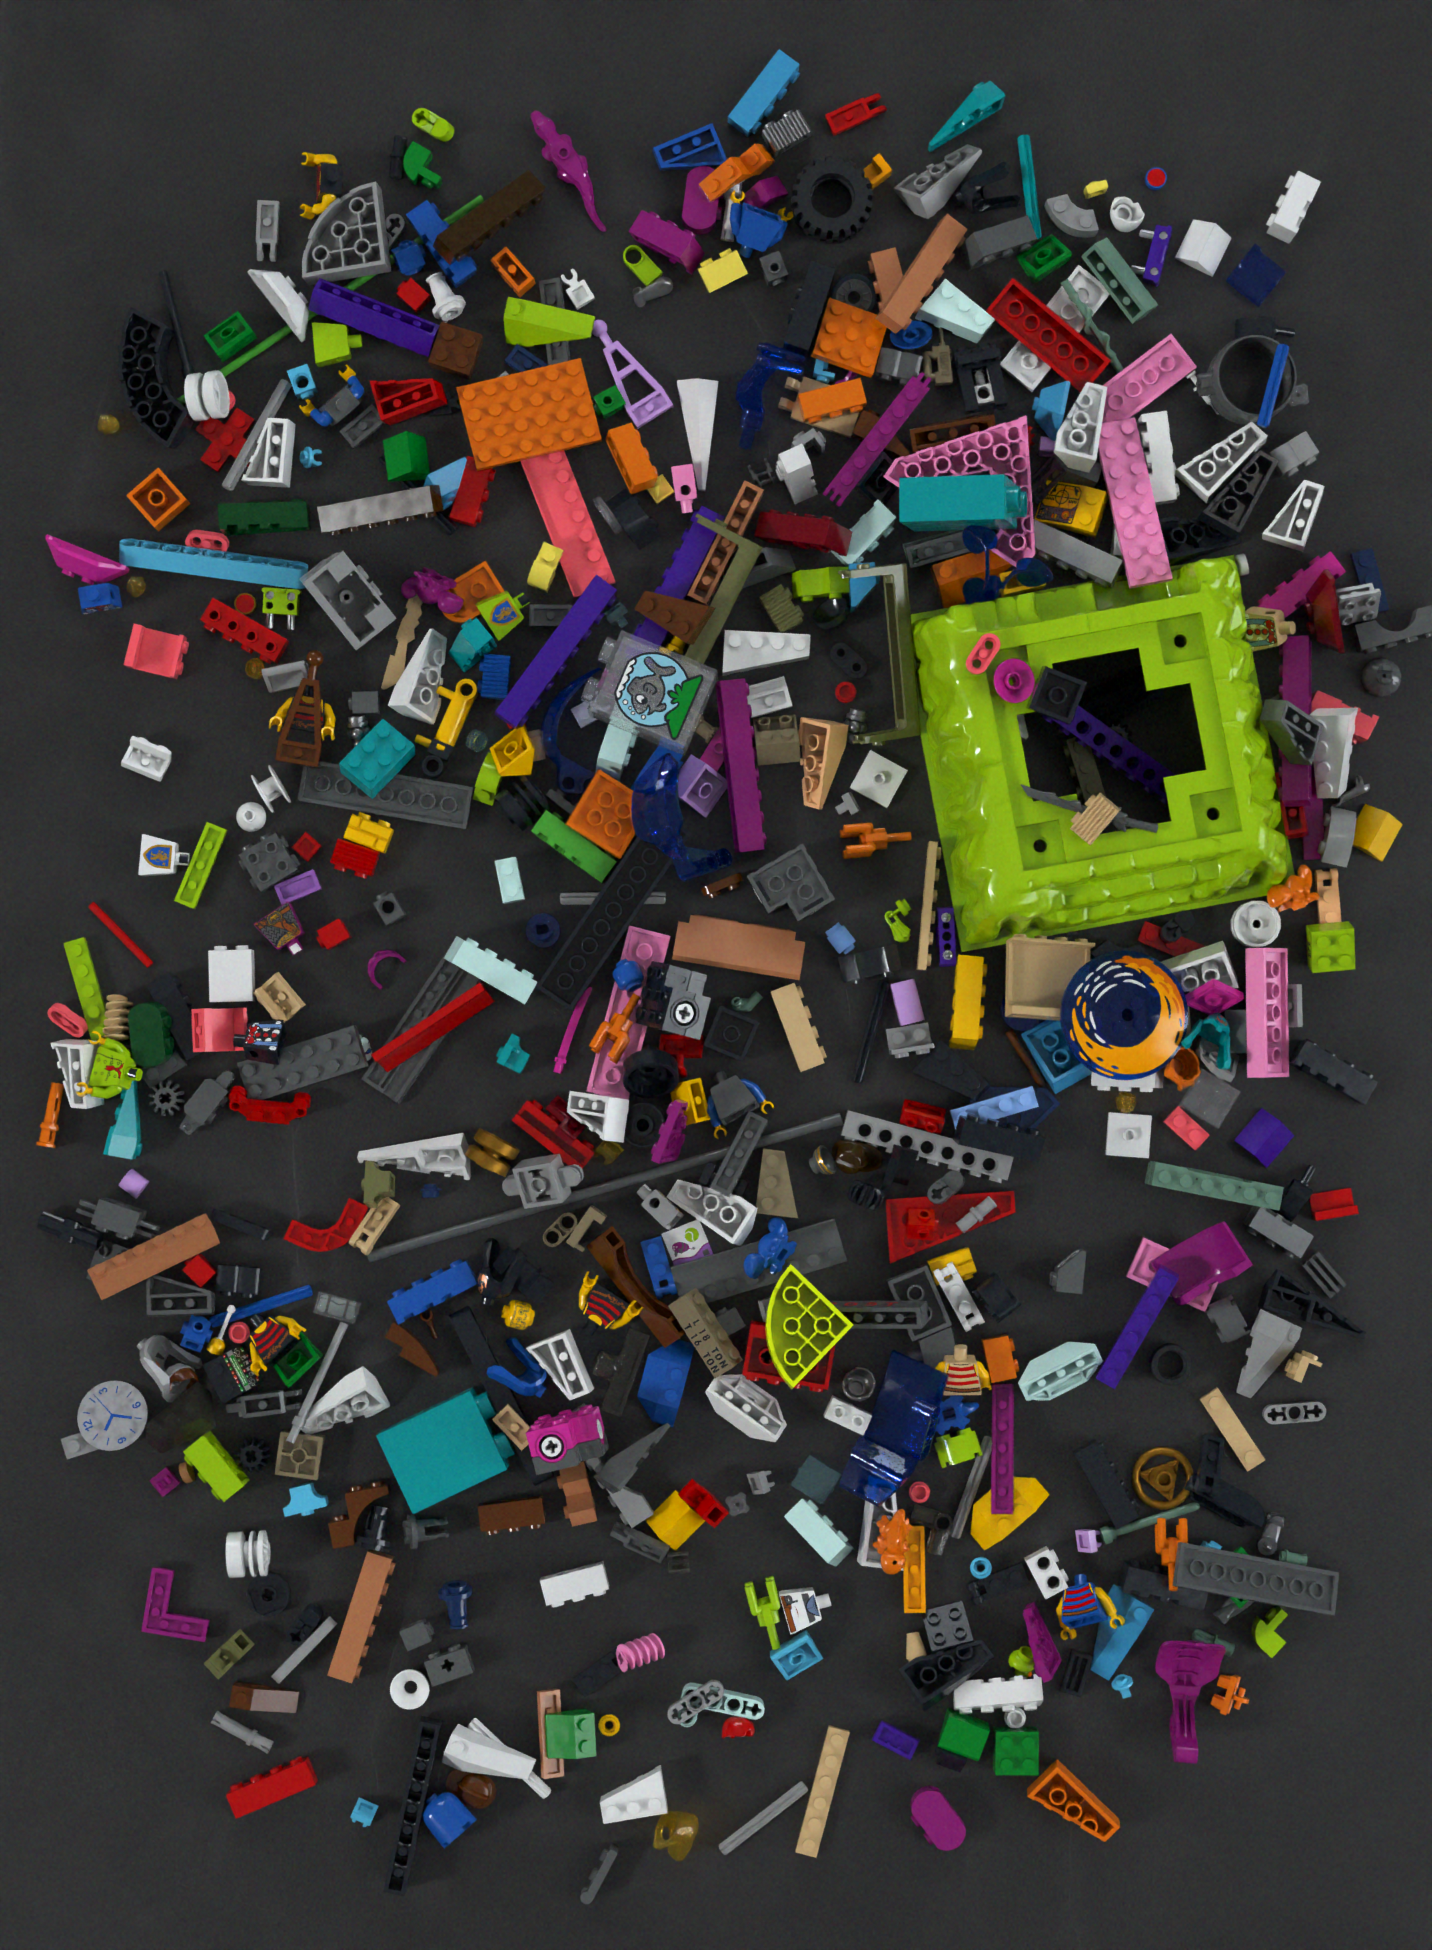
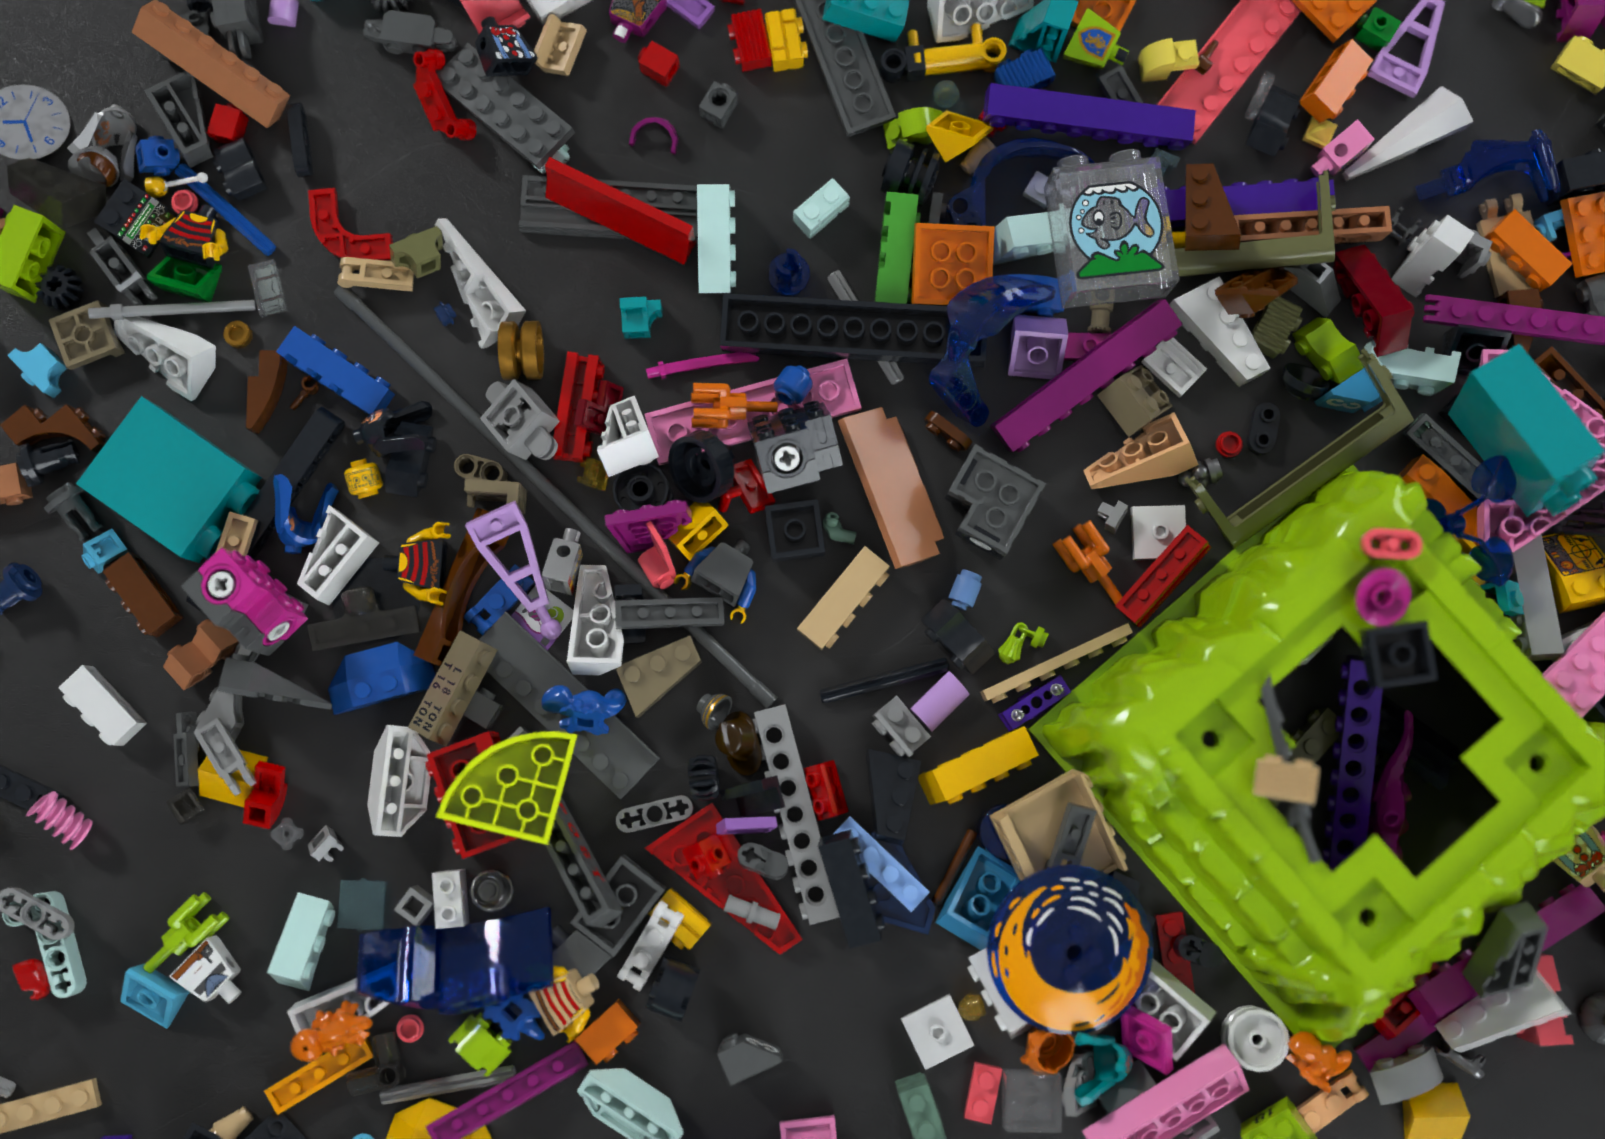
camera: 60 degrees right, 5 degrees down
(359, 1347) = (238, 334): none -> pearl gold tile
(463, 1525) = (102, 550): none -> medium azure bracket
(561, 543) = (1204, 62): none -> reddish brown hand
(612, 1238) = (496, 526): none -> lavender plate
(660, 1514) = (224, 754): none -> light grey hinge
(699, 1142) = (657, 562): none -> coral door
(750, 614) = (1254, 290): none -> reddish brown wedge
(839, 1440) = (415, 905): none -> light grey brick
(871, 1260) = (633, 811): none -> light grey beam
(911, 797) = (1163, 576): none -> red brick
(915, 1184) = (746, 825): none -> medium lavender tile
(1050, 968) = (1072, 835): none -> dark grey plate
(1063, 573) = (1508, 597): none -> teal bracket
(1151, 735) = (1392, 794): none -> magenta animal

